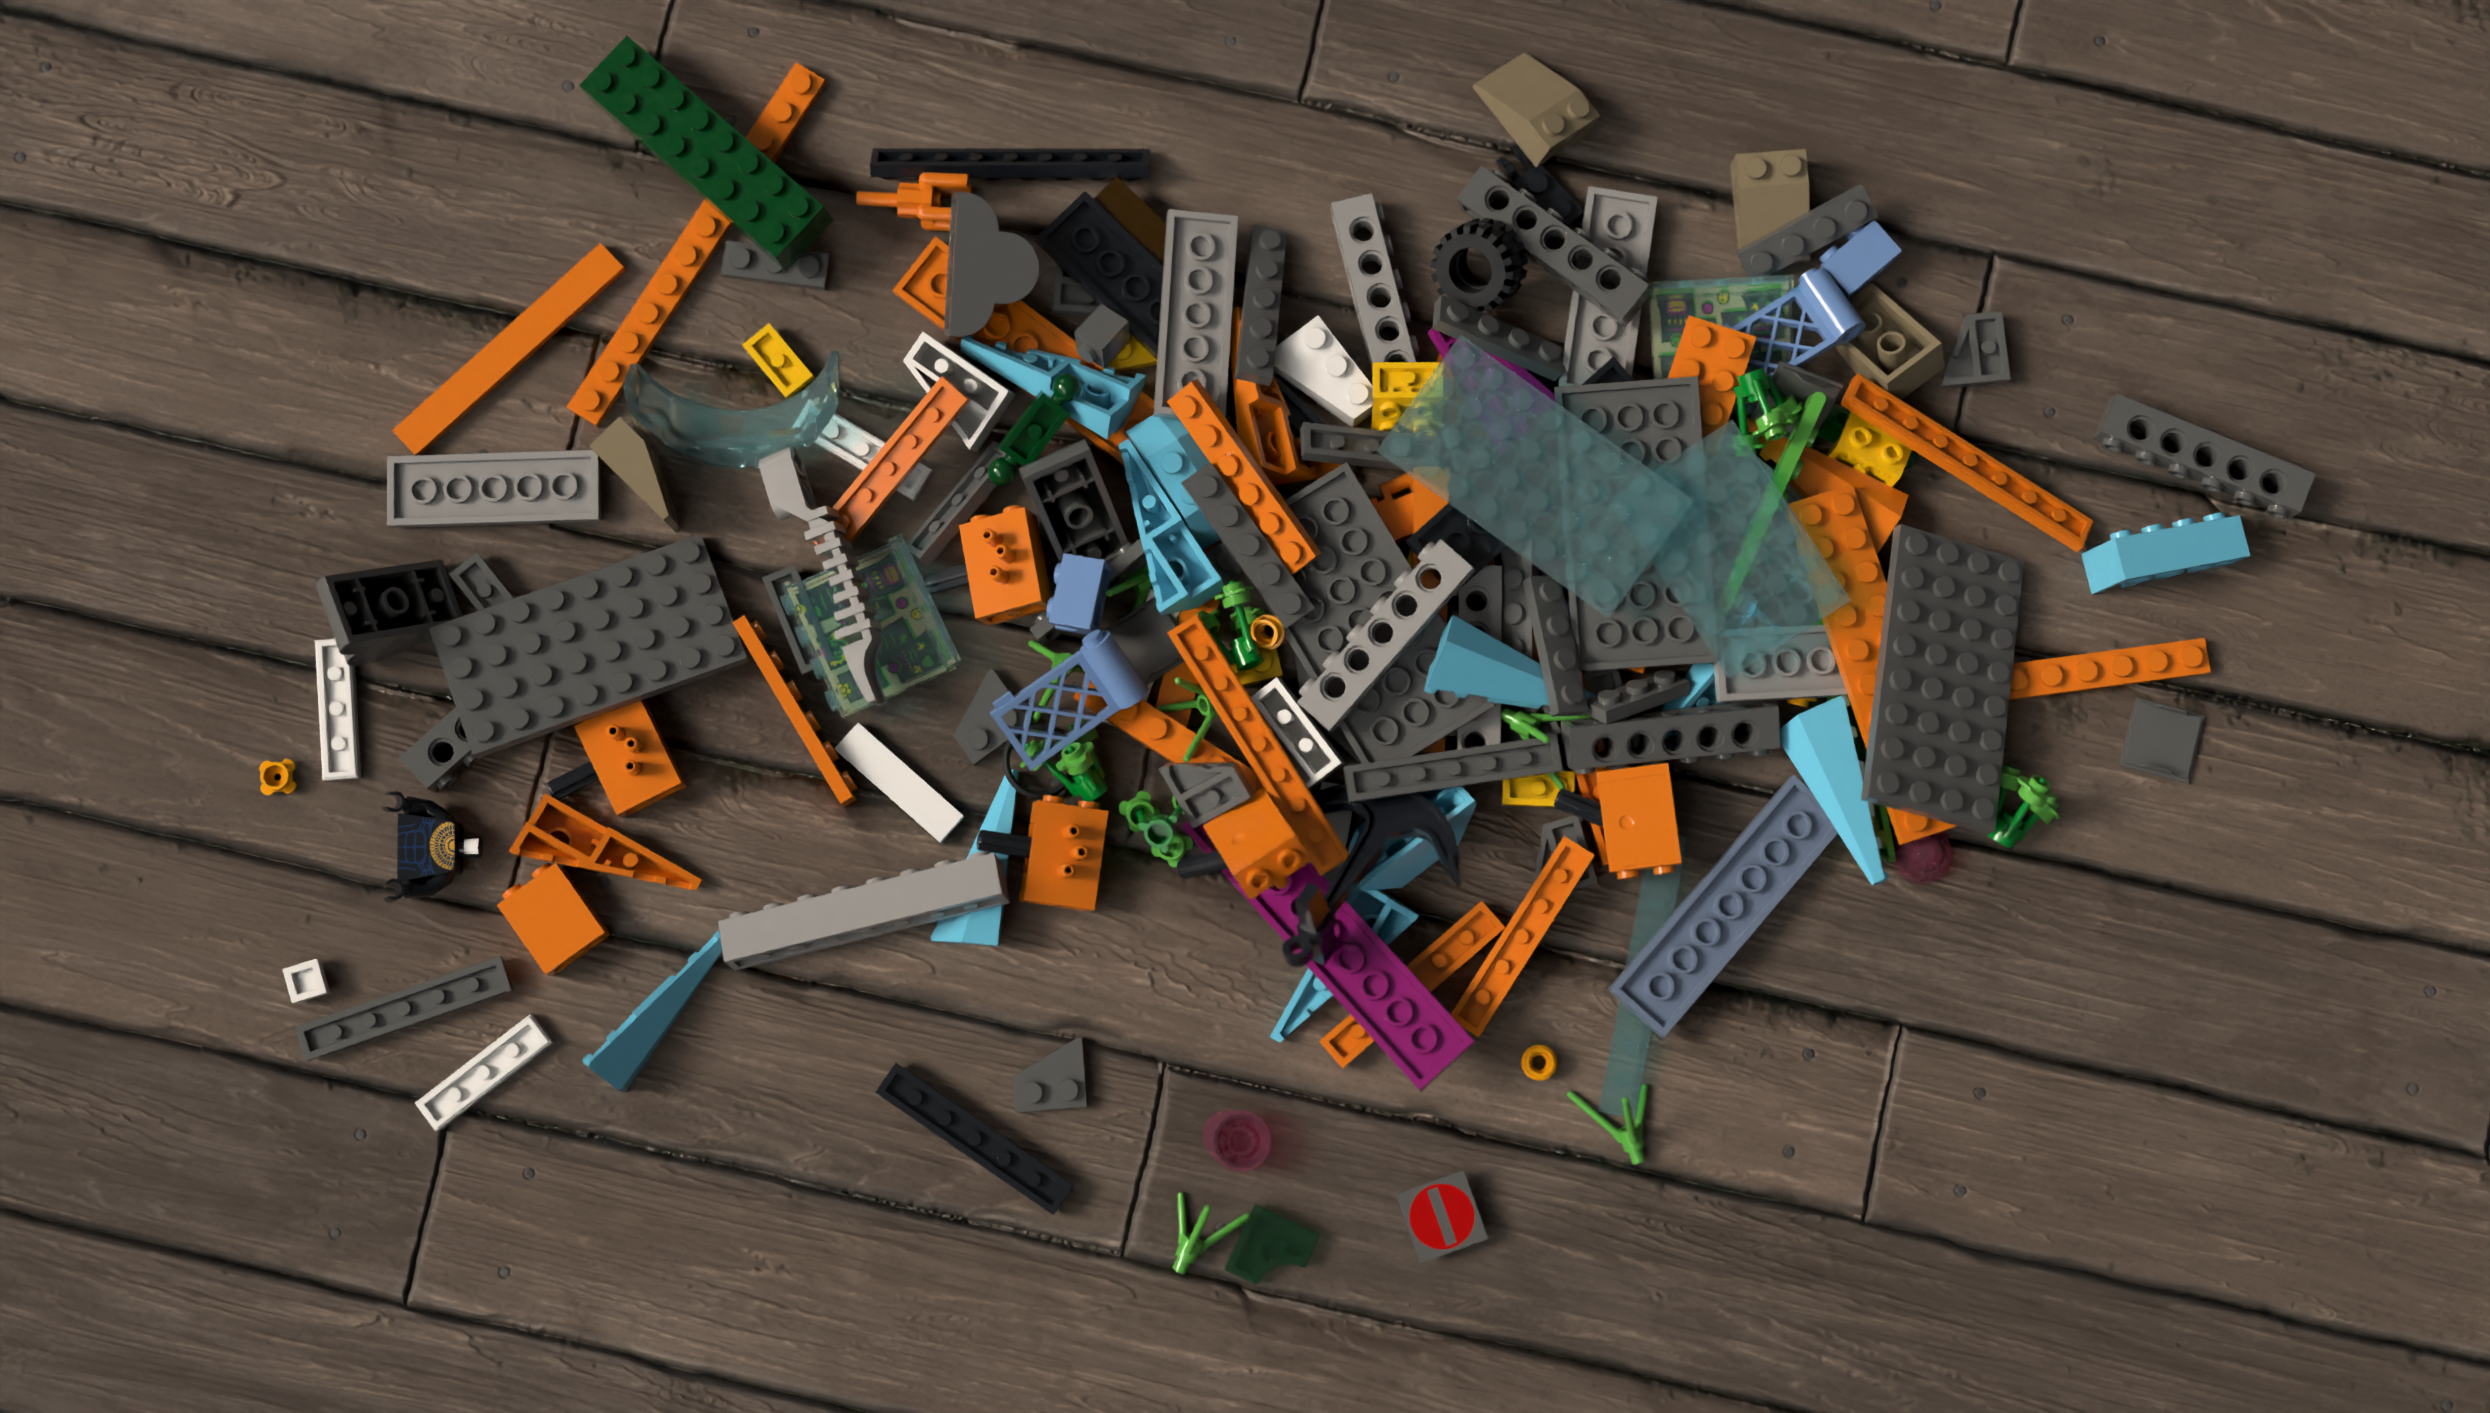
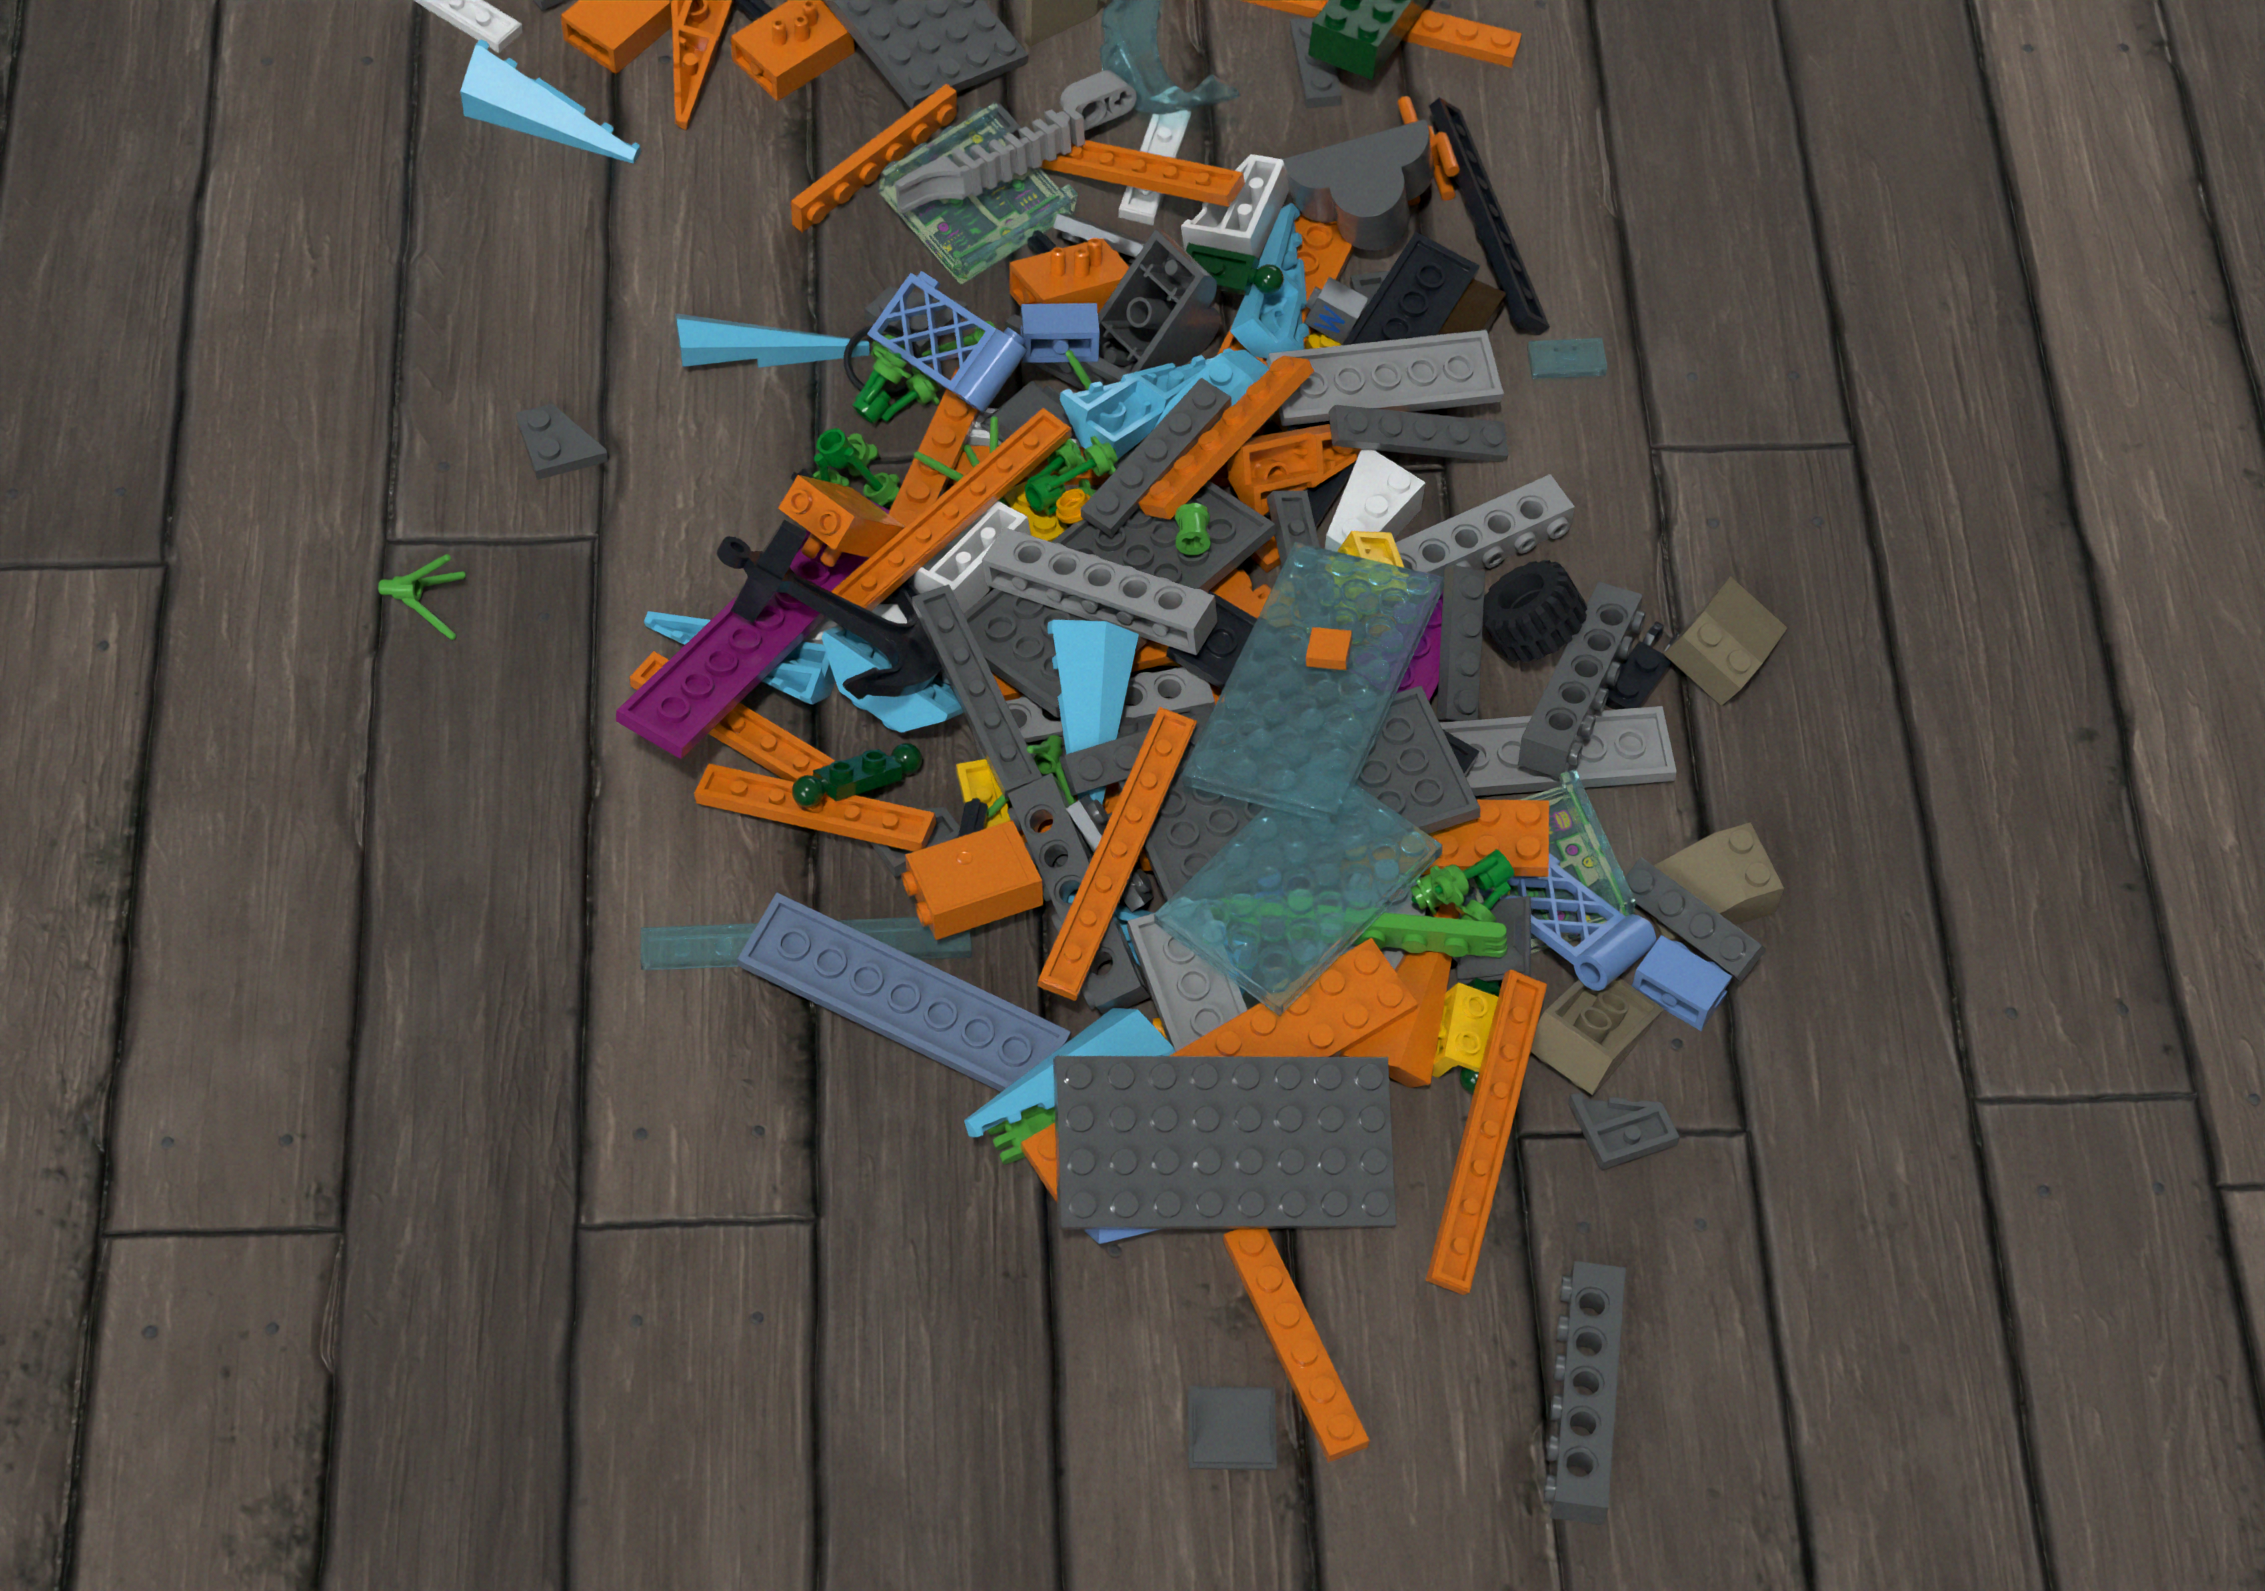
camera: 70 degrees right, 25 degrees down
(778, 361) = (1226, 65): yellow plate -> none
(863, 910) = (688, 240): light grey brick -> none
(899, 782) = (828, 258): white tile -> none
(974, 1138) = (479, 387): black plate -> none
(1059, 853) = (791, 388): orange piece -> none
(1191, 144) = (1567, 358): none -> clear light blue plate
(1206, 788) = (891, 480): dark grey wing -> none
(1237, 1139) = (529, 597): clear pink piece -> none
(1269, 1242) = (427, 656): clear green tile -> none
(1340, 536) = (1192, 525): none -> bright green bush
(1441, 1216) = (489, 800): piece -> none
(1500, 892) = (856, 775): none -> dark green plate
(1521, 456) = (1329, 648): none -> orange tile
(1550, 1062) = (678, 853): light orange plate -> none
(1629, 1135) = (619, 964): bright green plant -> none
(1658, 691) = (1116, 854): none -> orange tile
(1923, 859) = (1019, 1198): clear pink piece -> none
(2036, 797) = (1118, 1258): plant -> none
(2165, 552) = (1458, 1368): medium azure wedge -> none

